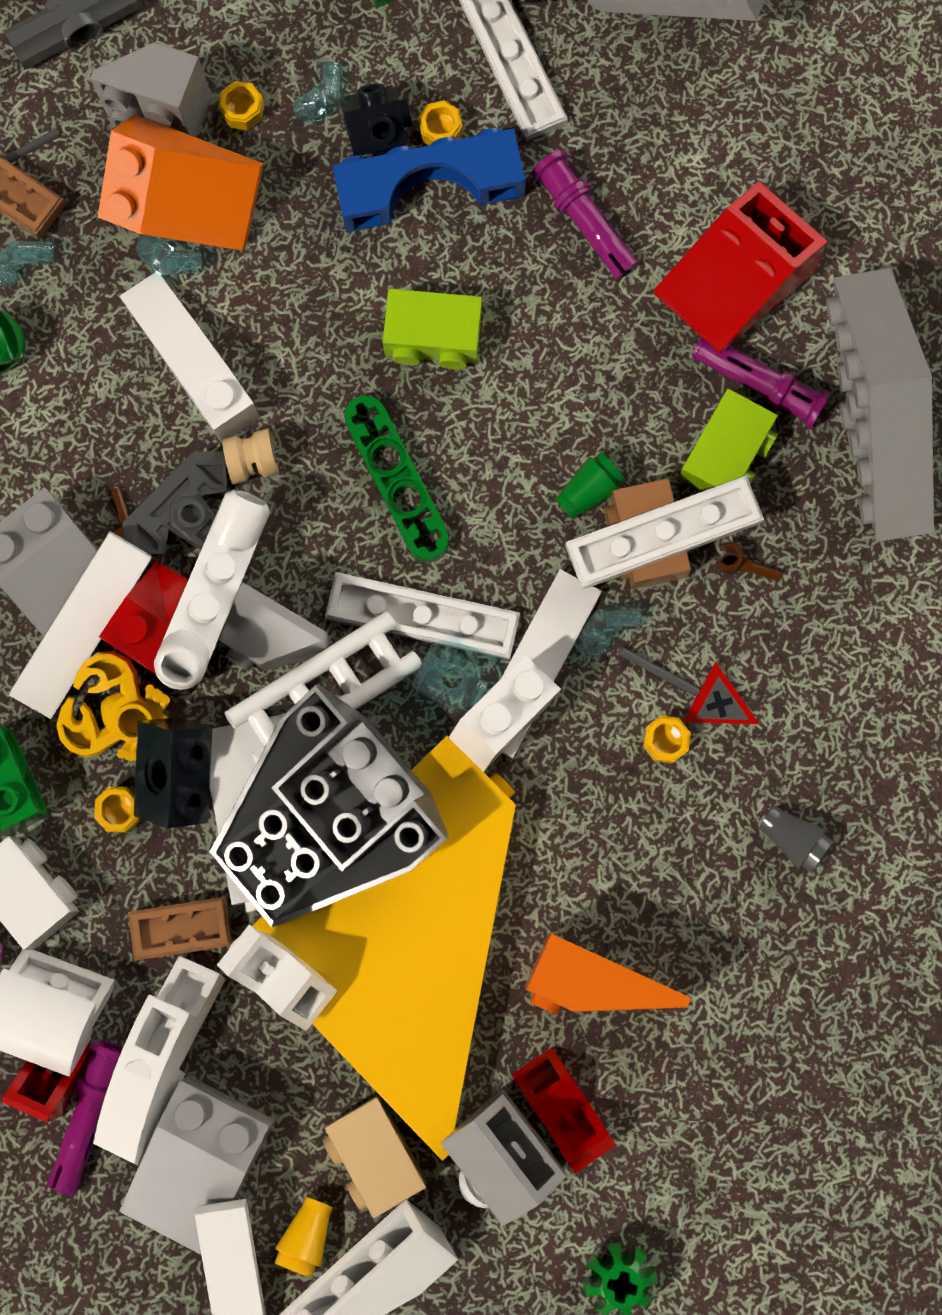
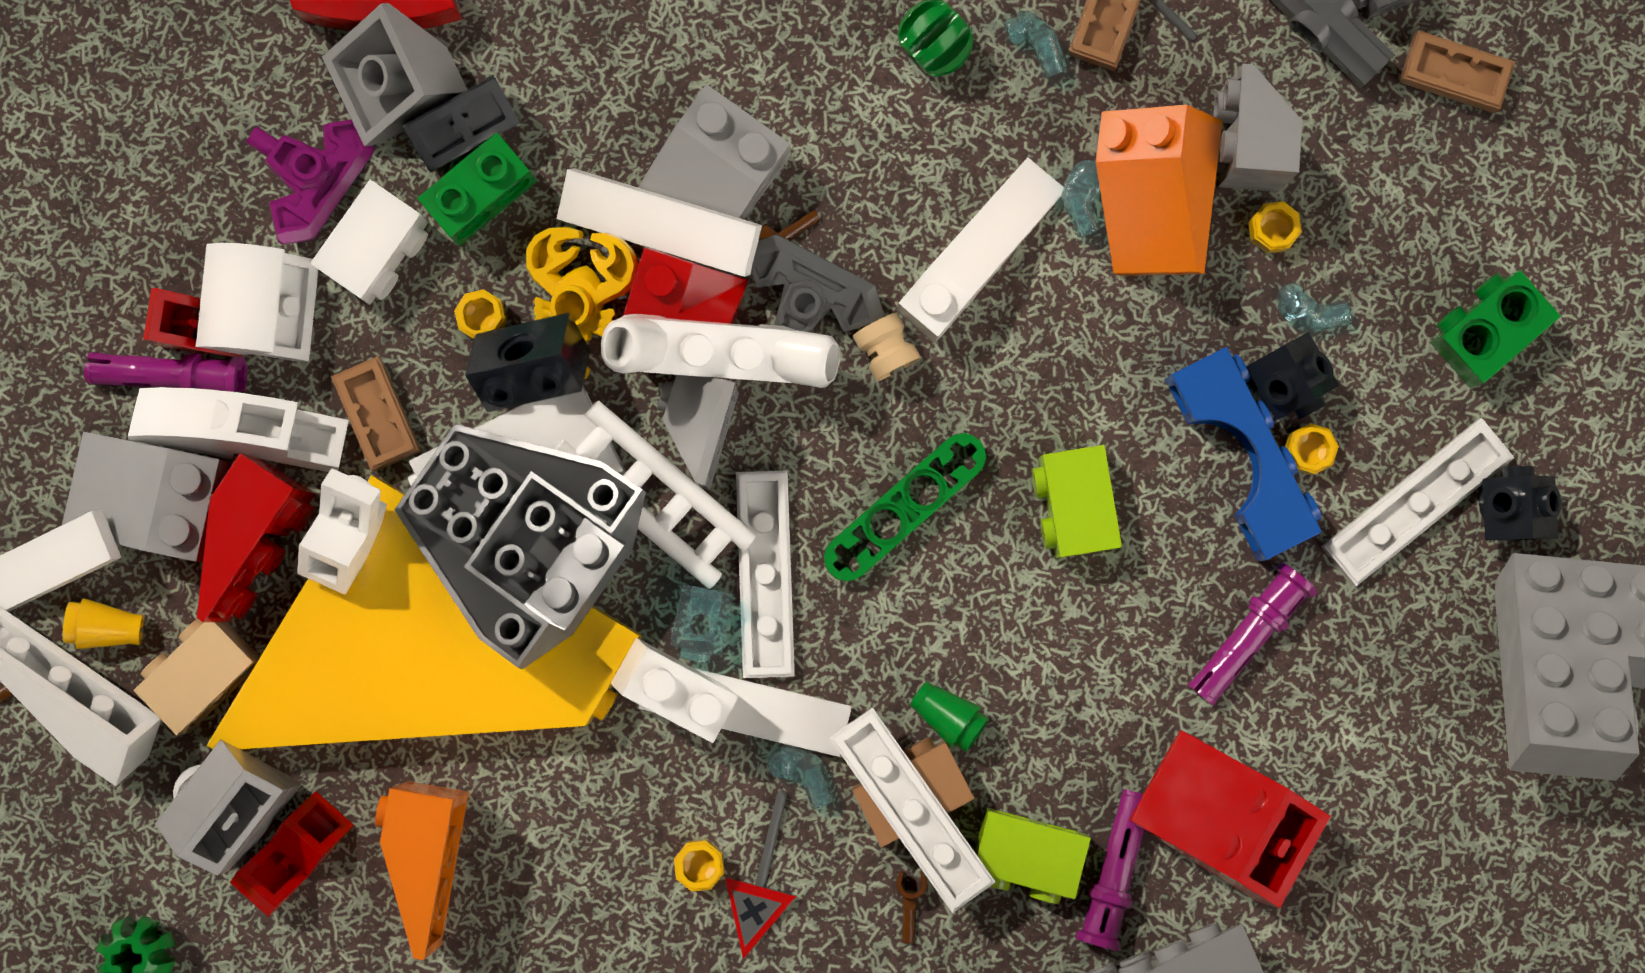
camera: 70 degrees right, 5 degrees up
(233, 1065) = (244, 506): none -> red slope

